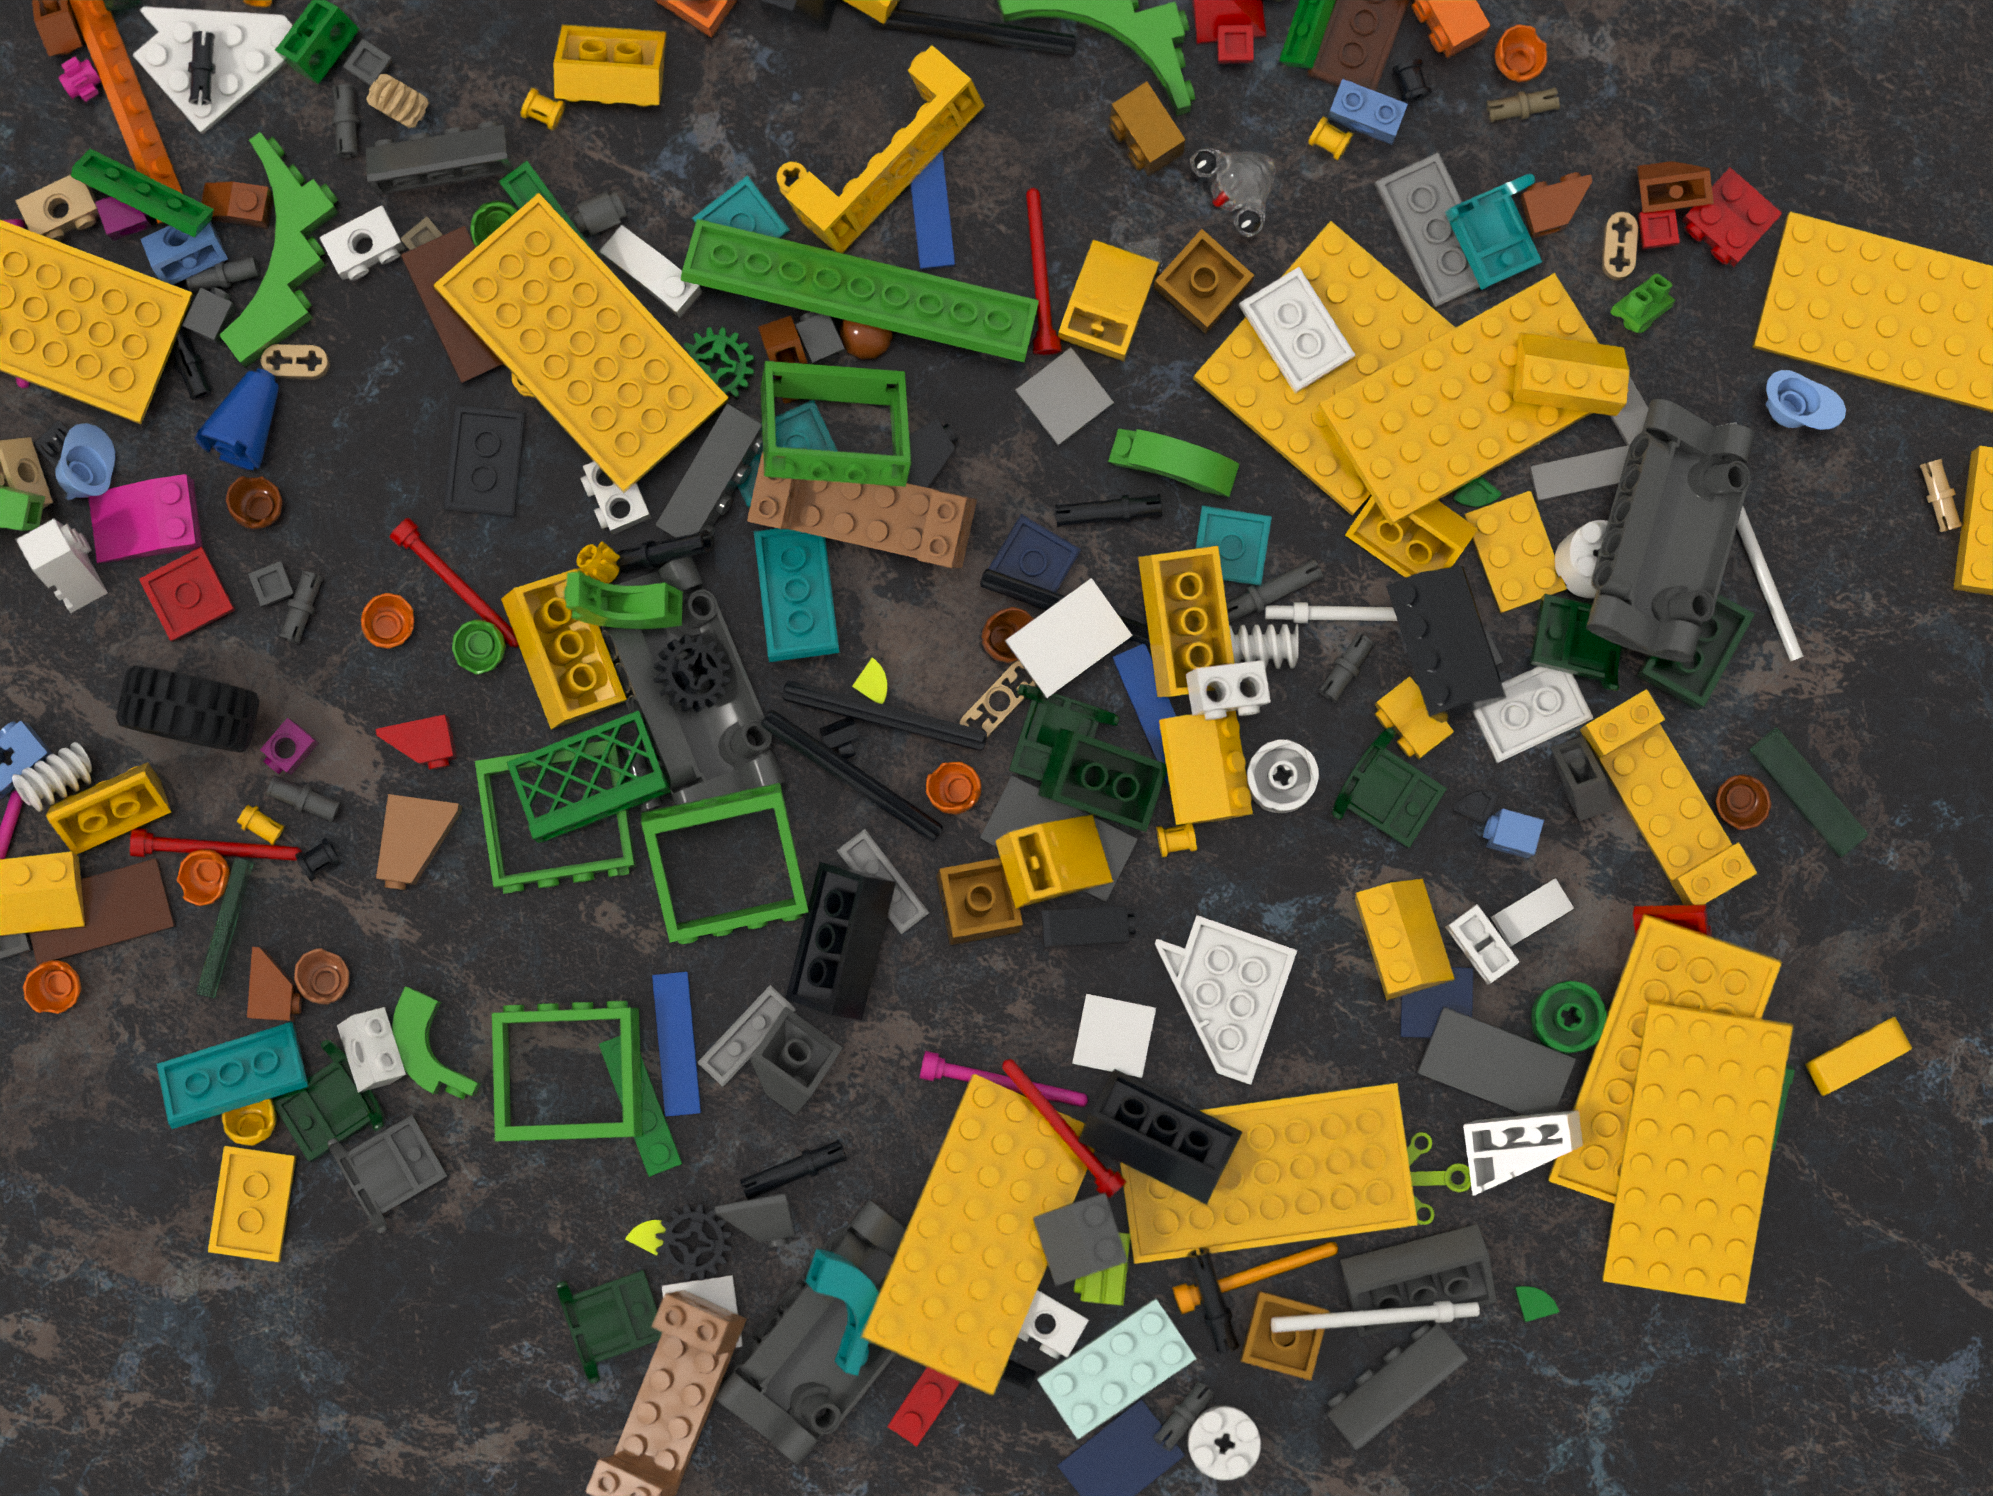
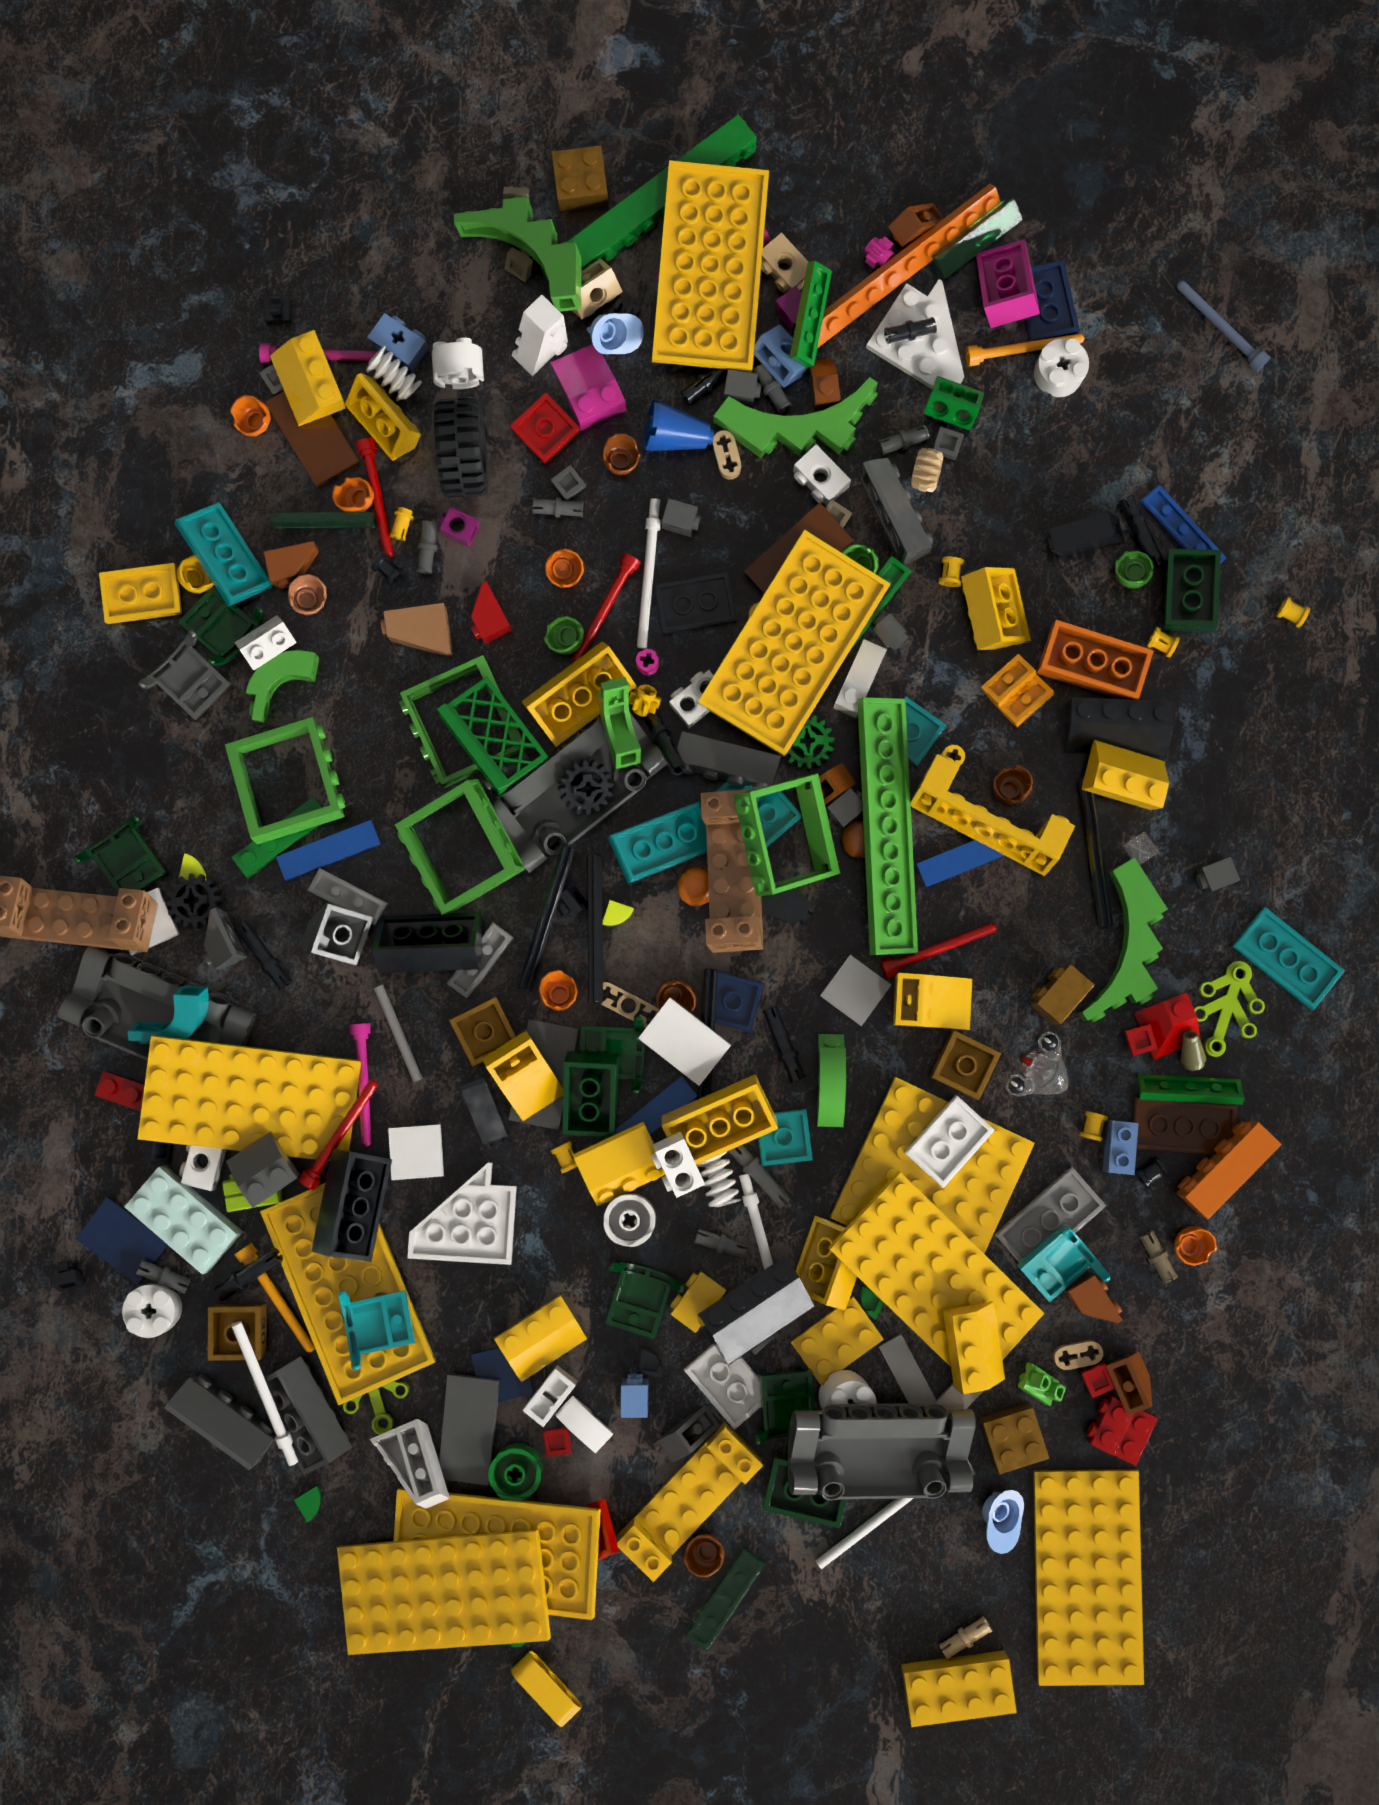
camera: 70 degrees right, 0 degrees up
(66, 685) = (457, 364): none -> white brick
(363, 487) = (652, 525): none -> white bar
(364, 446) = (680, 518): none -> dark grey brick
(546, 535) = (652, 668): none -> dark pink bush
(727, 69) = (1017, 690): none -> light orange slope
(852, 111) = (1013, 785): none -> dark orange hair
(865, 569) = (693, 886): none -> orange hair
(949, 1017) = (398, 1033): none -> light grey bar
(1325, 1144) = (376, 1324): none -> teal piece
(1545, 955) = (556, 1441): none -> red tile
(1703, 358) = (1014, 1438): none -> pearl gold brick

